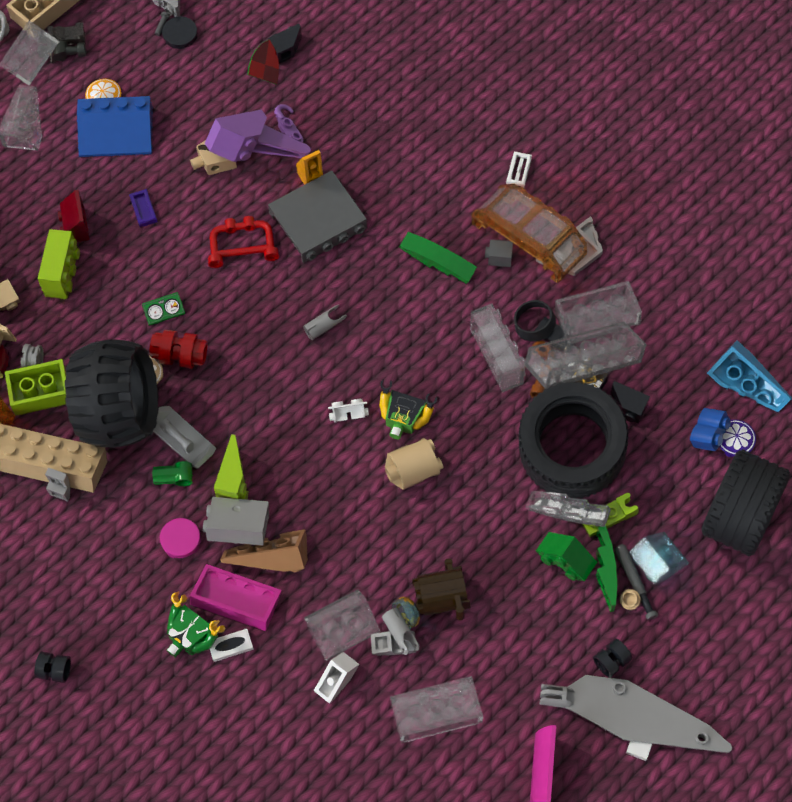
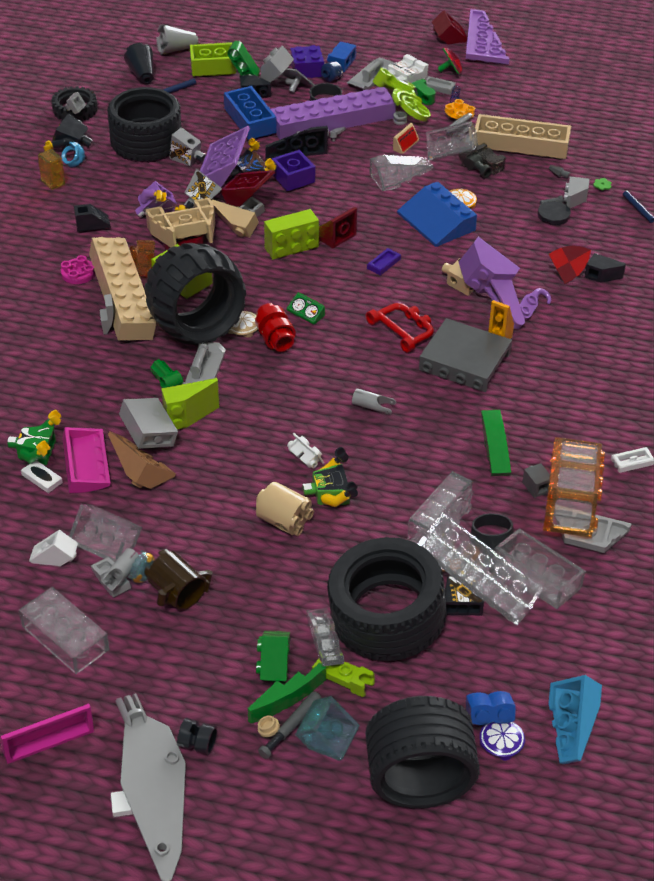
camera: 55 degrees right, 20 degrees down
(180, 538) = (109, 404): dark pink tile -> none
(631, 401) = (468, 636): black slope -> none

